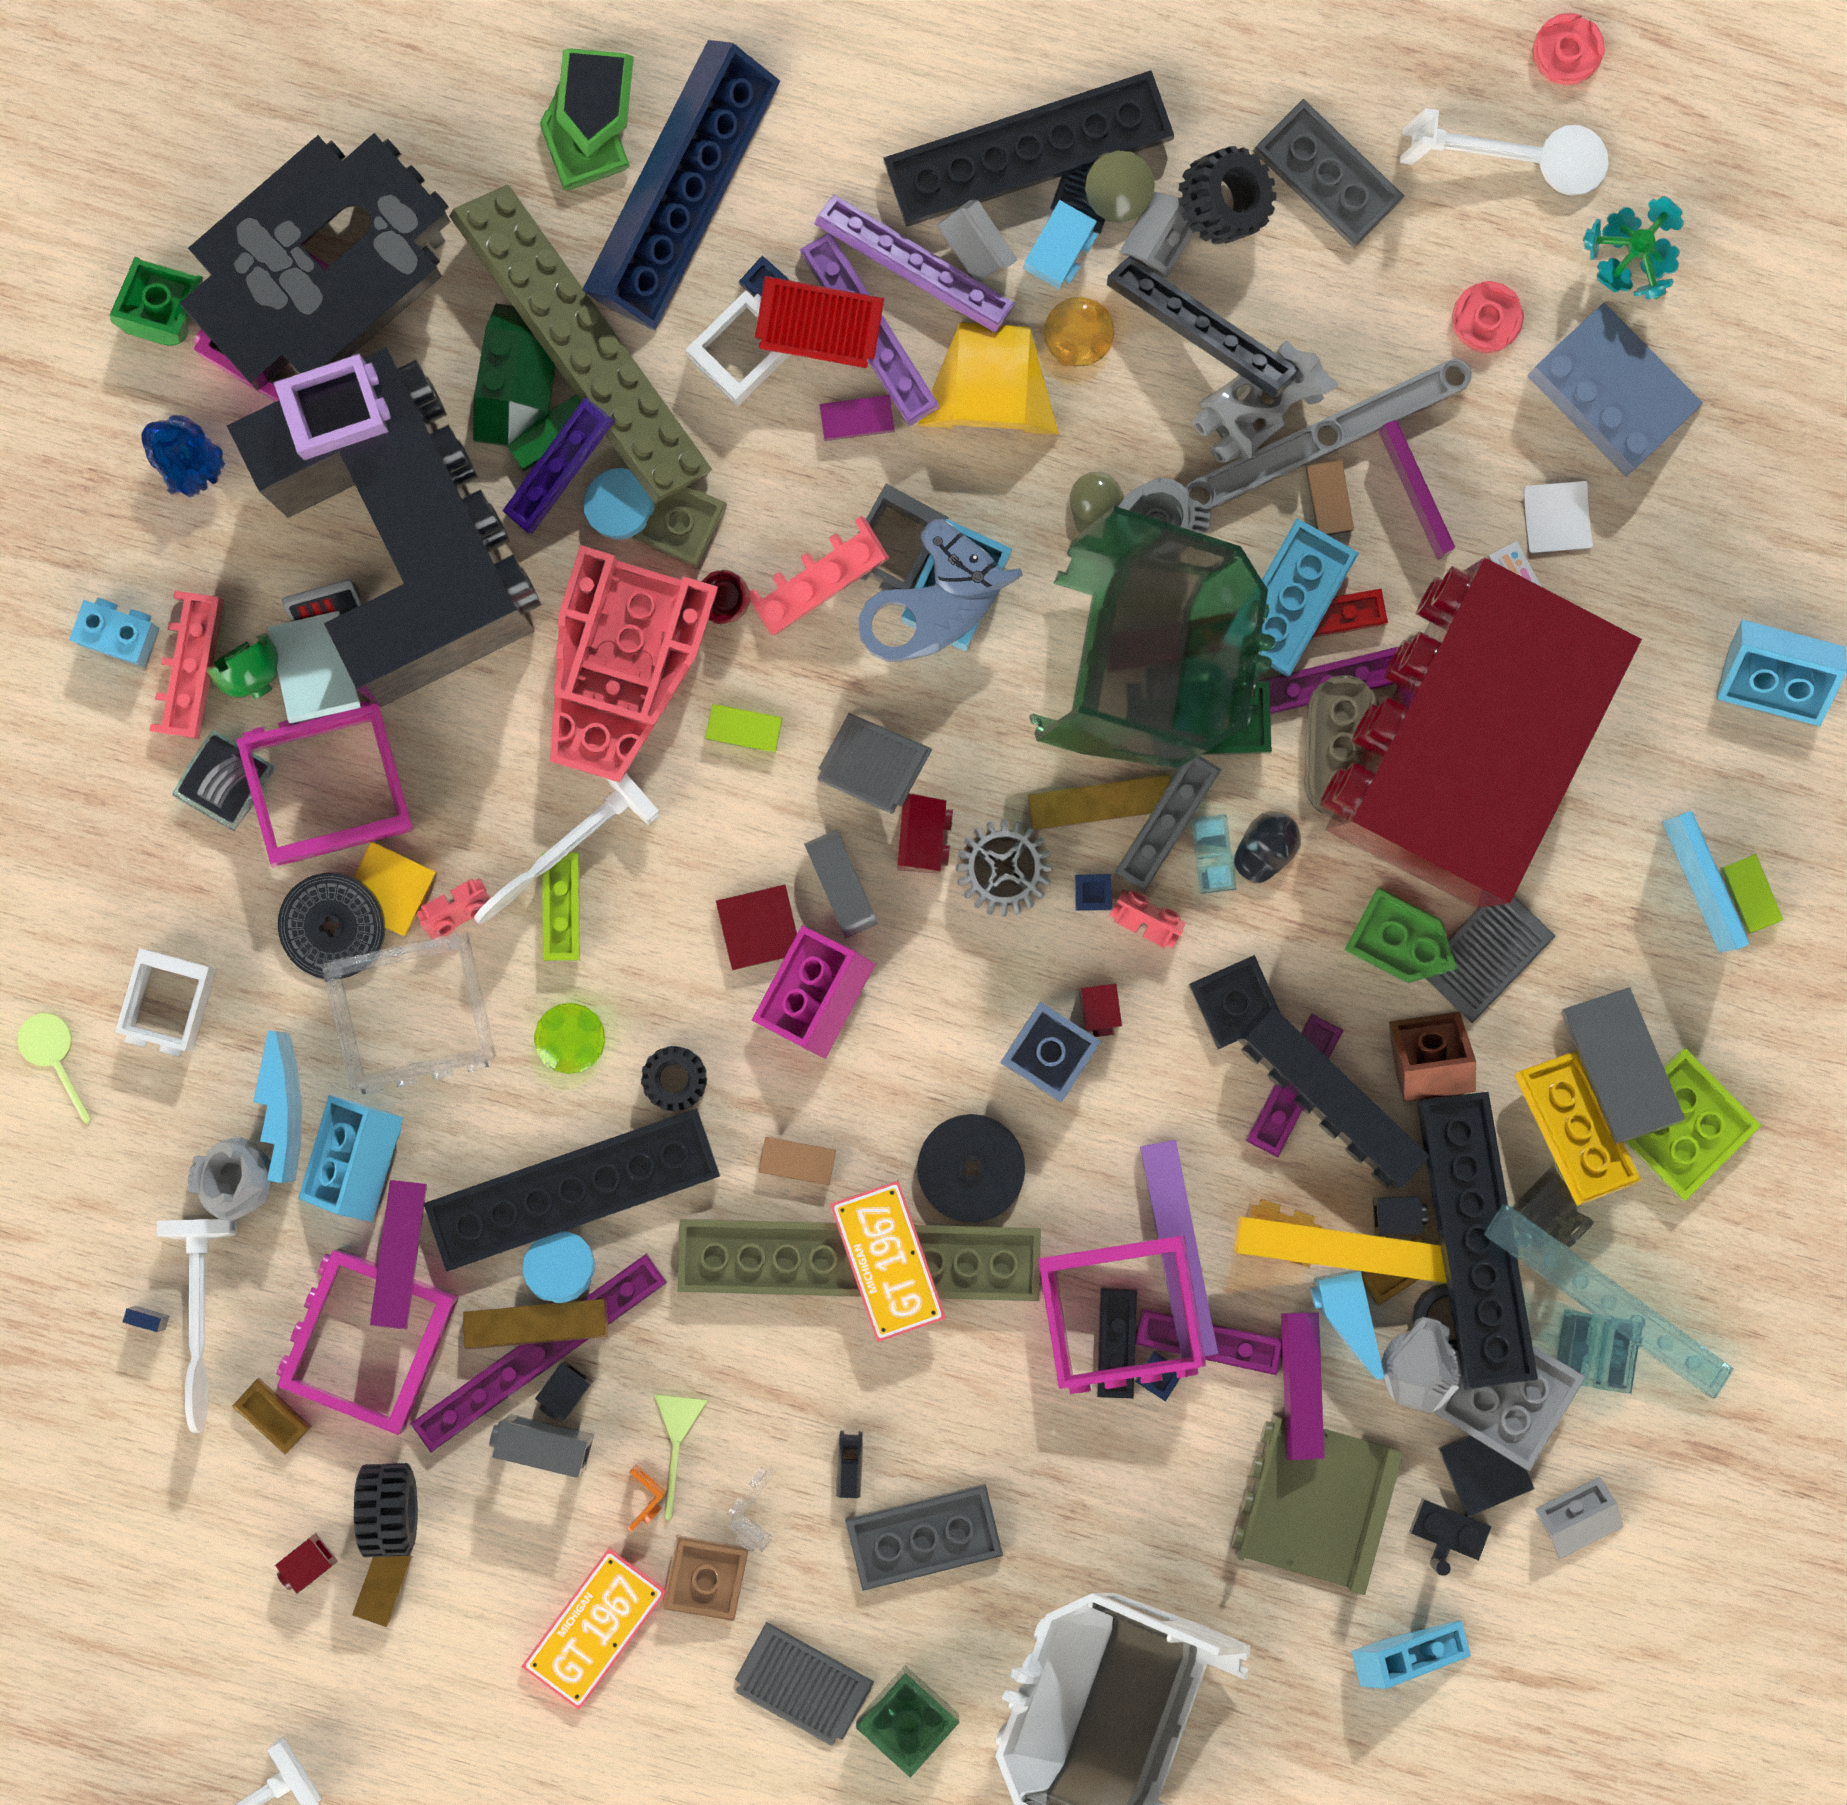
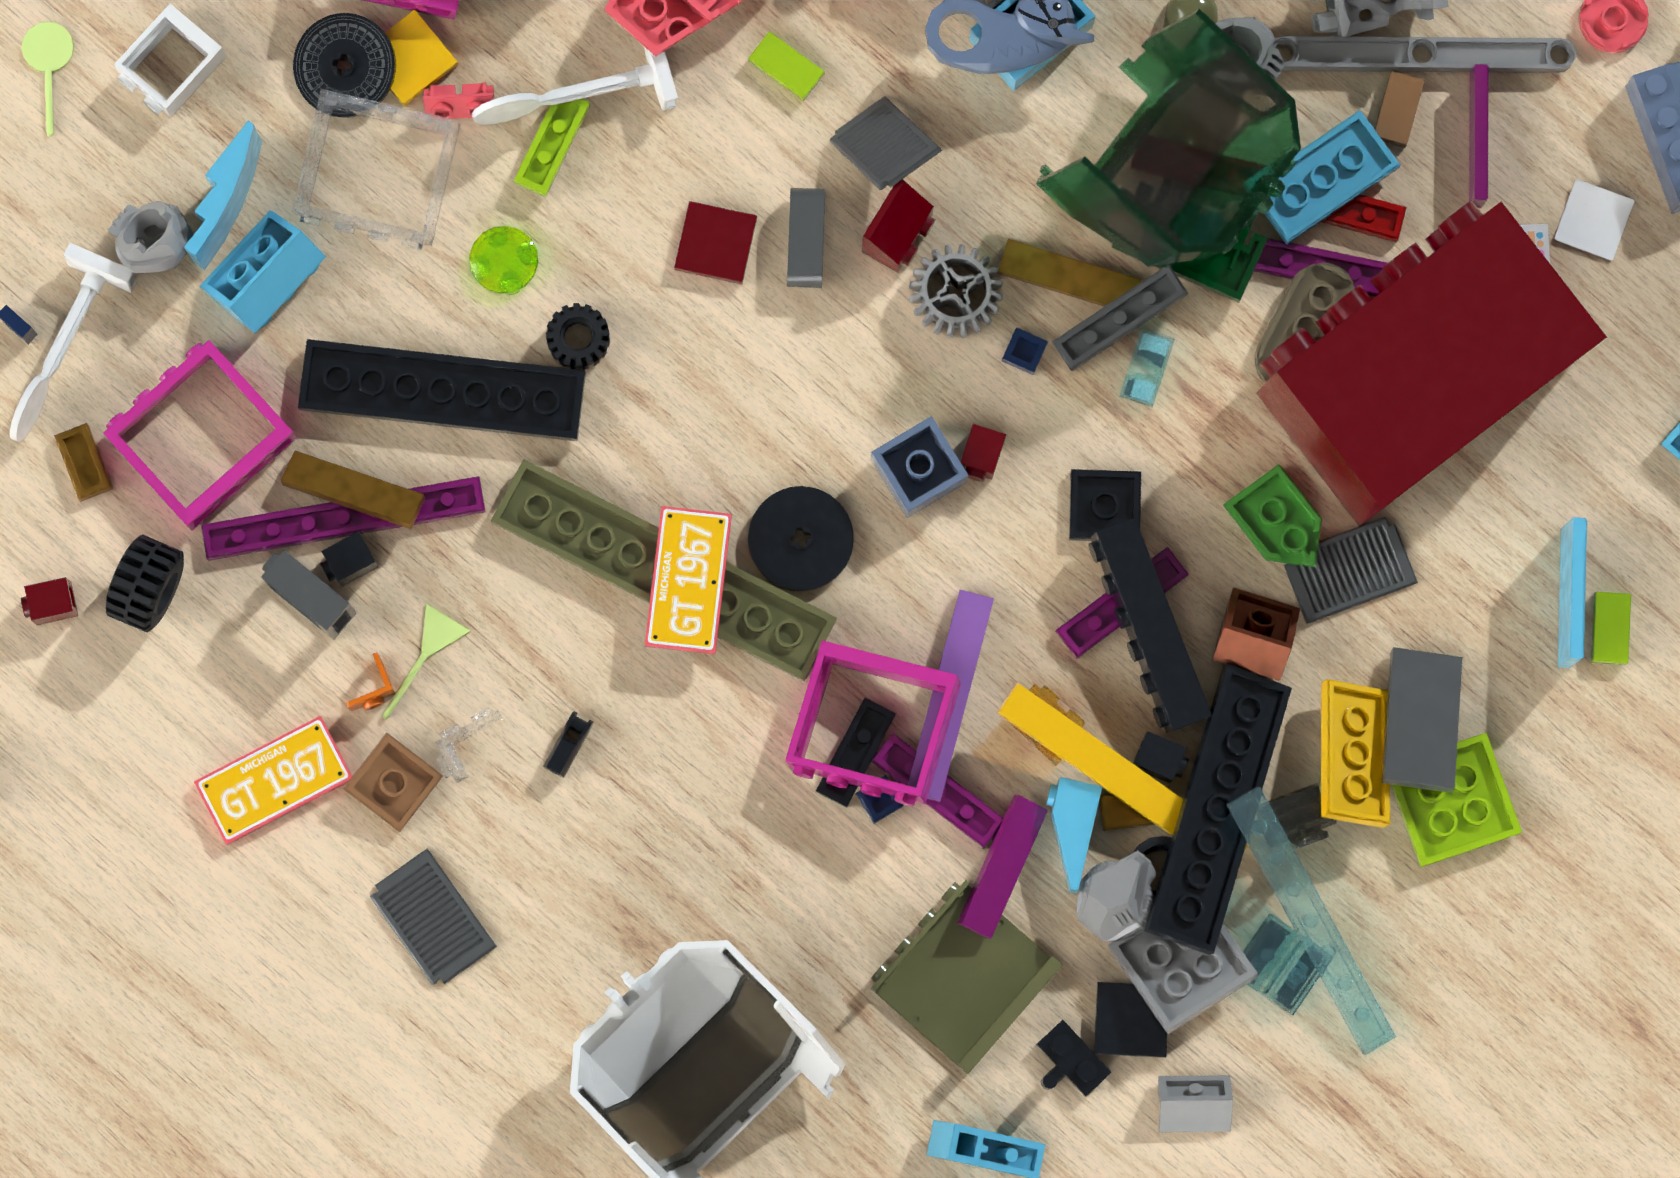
camera: 25 degrees right, 5 degrees down
(382, 1588) = (107, 654): pearl gold tile -> none
(398, 1254) = (264, 370): magenta tile -> none
(559, 1267) = (397, 450): medium azure tile -> none
(797, 1161) = (651, 460): medium nougat tile -> none
(813, 991) = (737, 318): dark pink slope -> none
(907, 1721) = (510, 989): clear green brick -> none
(924, 1537) = (602, 840): dark grey tile -> none
(1137, 909) = (1071, 404): coral hinge -> none
(1267, 846) = (1198, 384): black piece -> none

